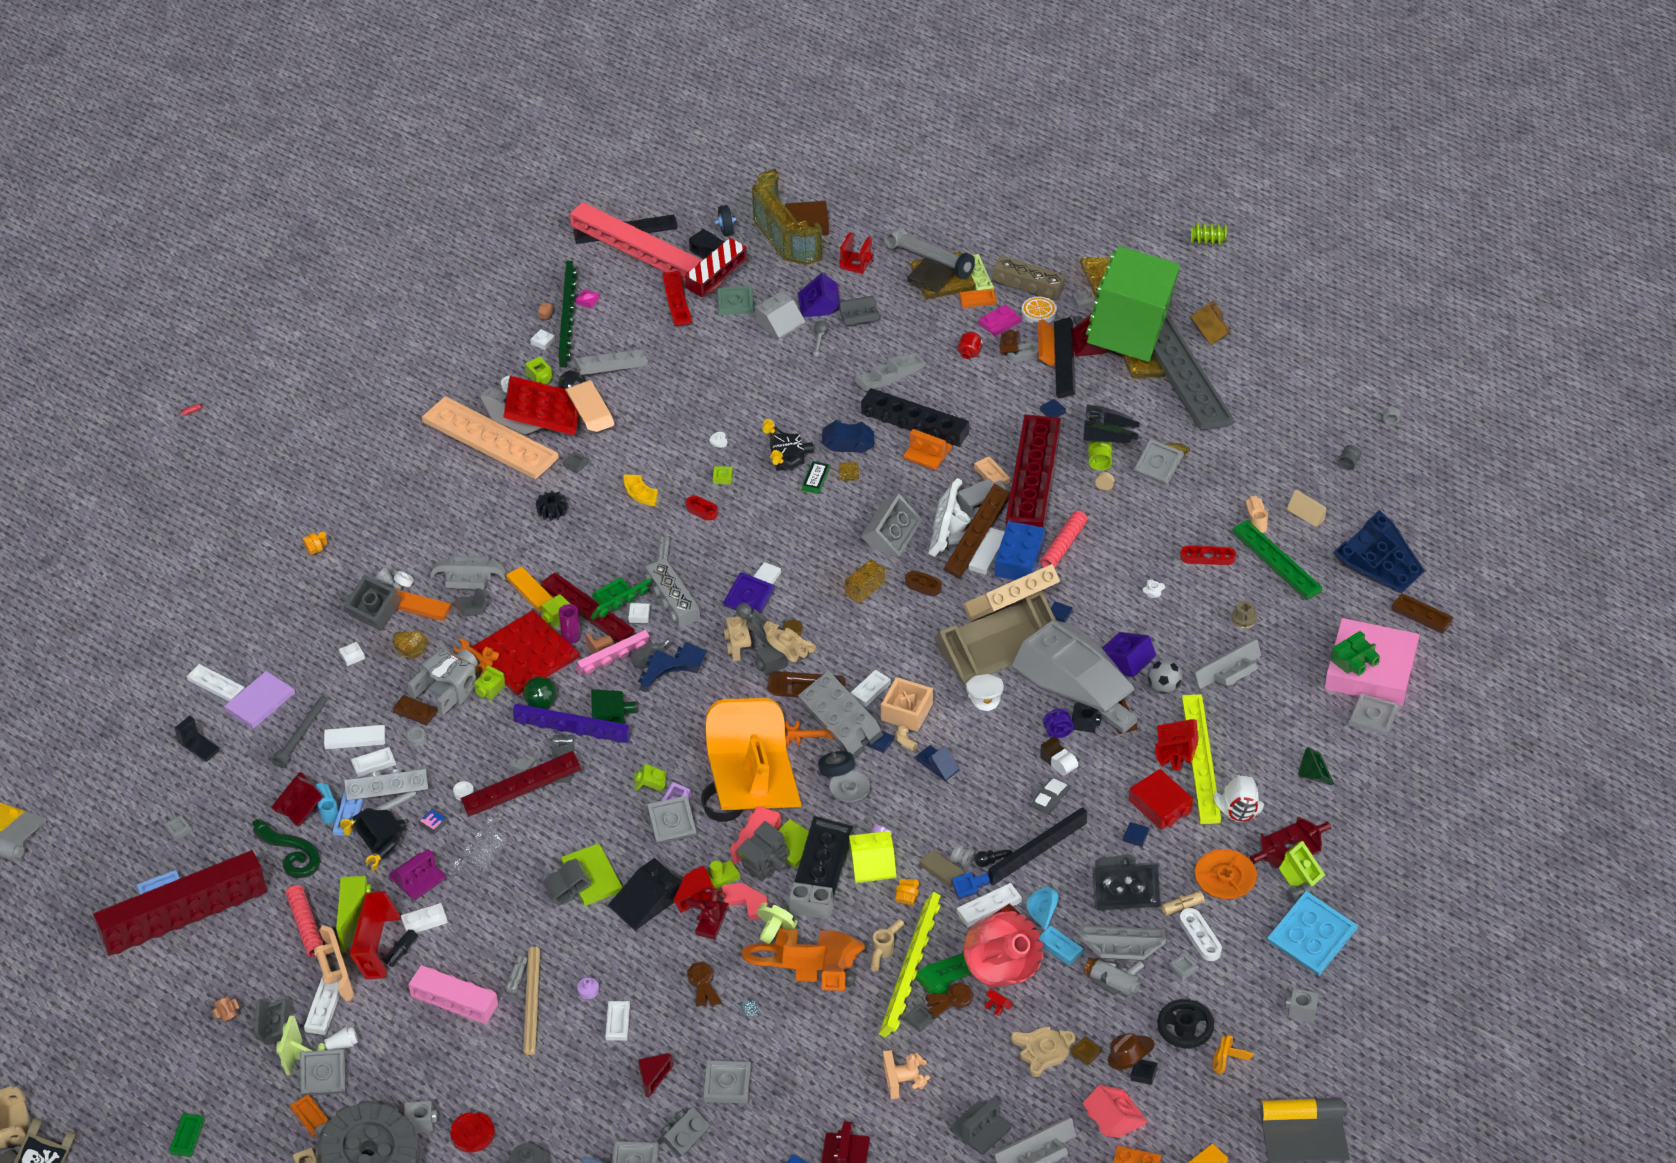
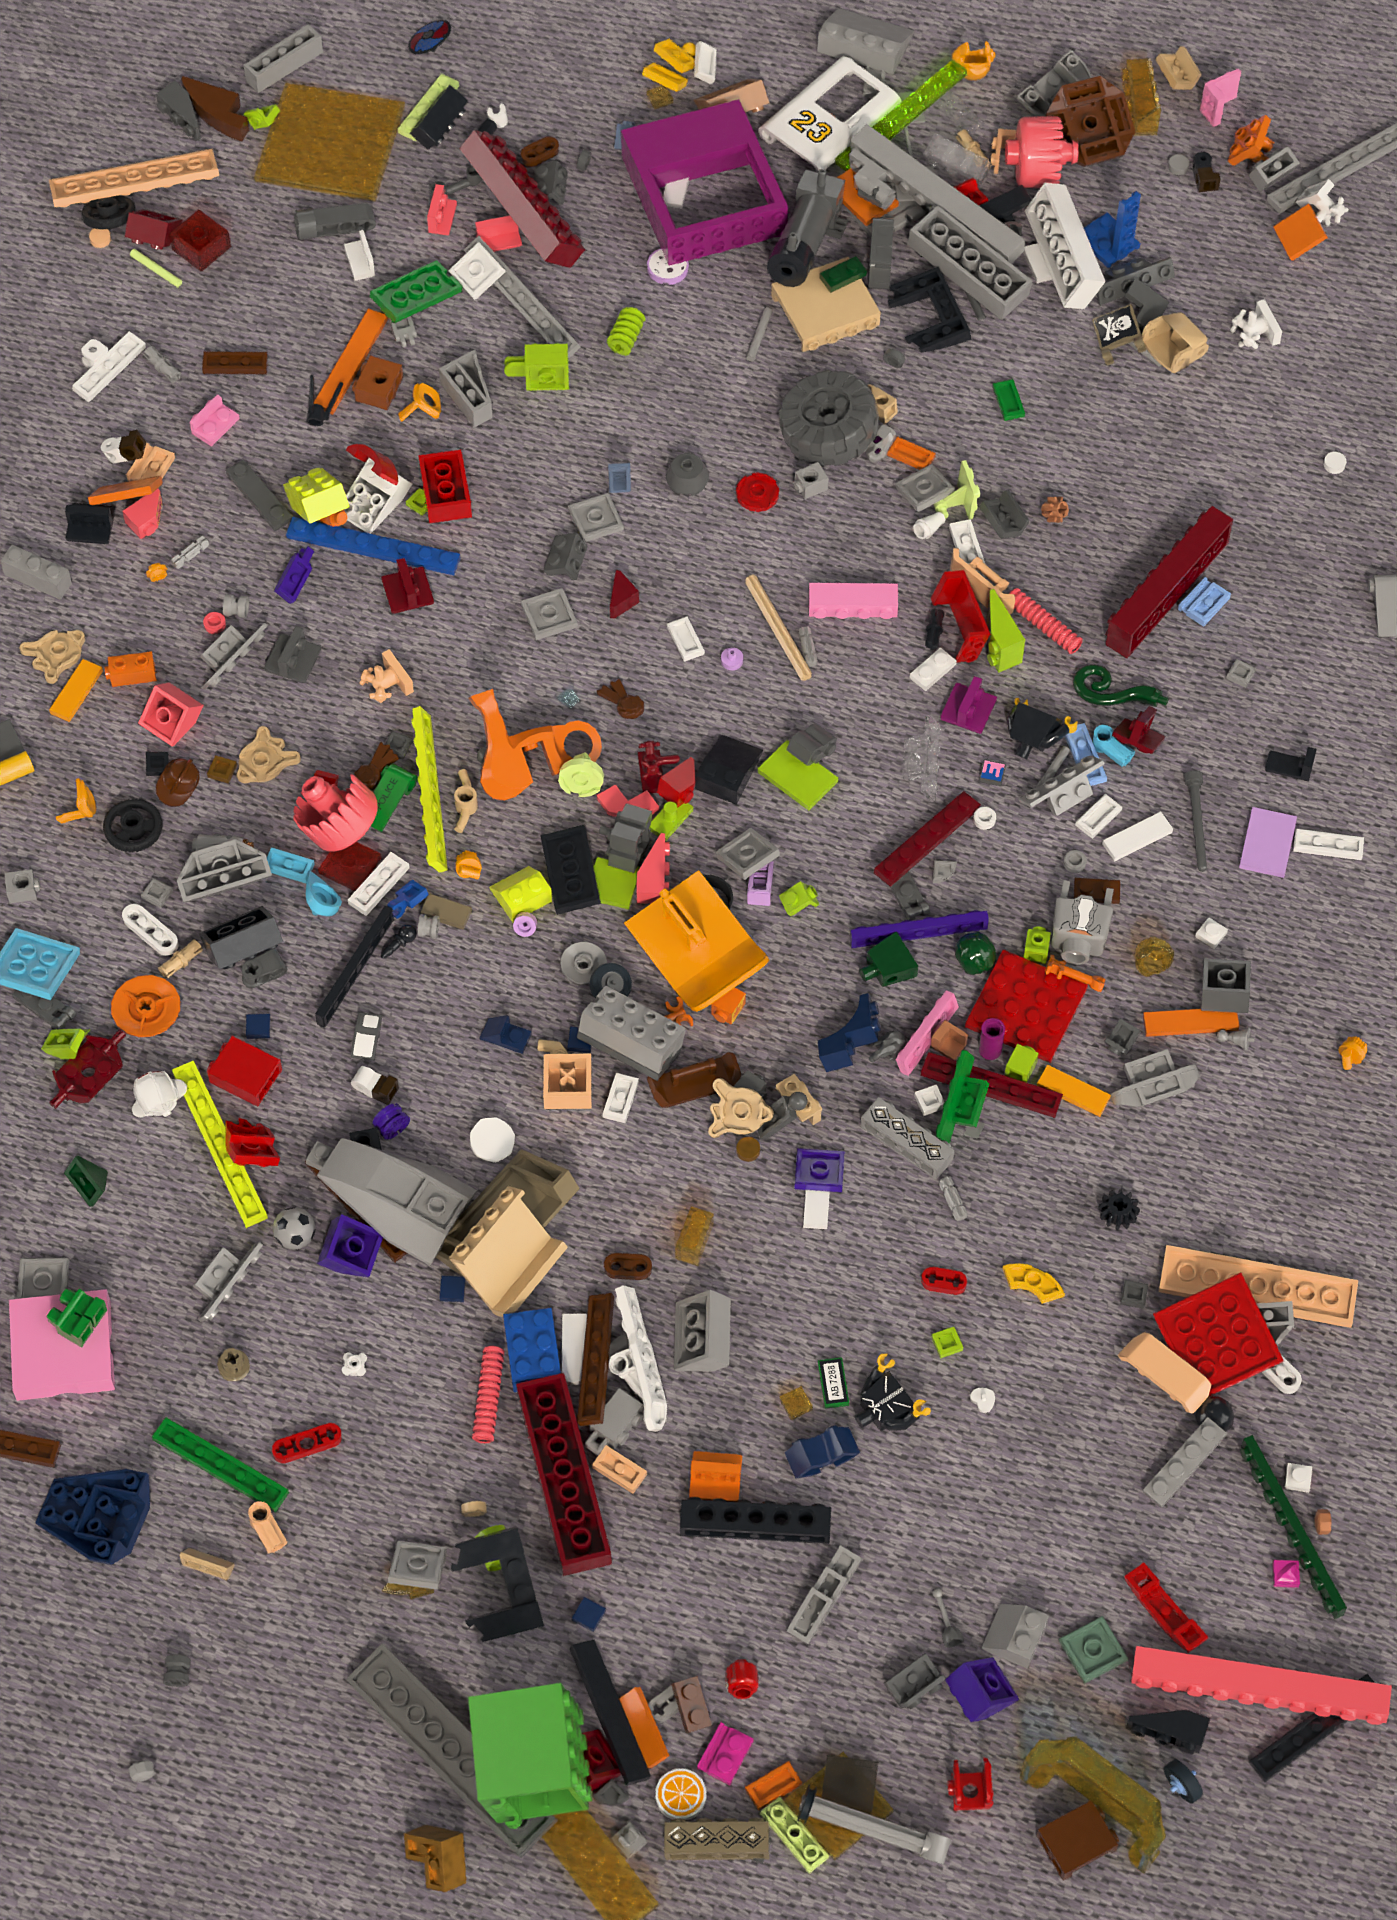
camera: 155 degrees right, 15 degrees up
(403, 579) = (1219, 1043): white tile -> none
(542, 374) = (1267, 1403): lime brick -> none
(715, 267) = (1136, 1659): brick -> none
(802, 907) = (557, 825): light grey piece -> none

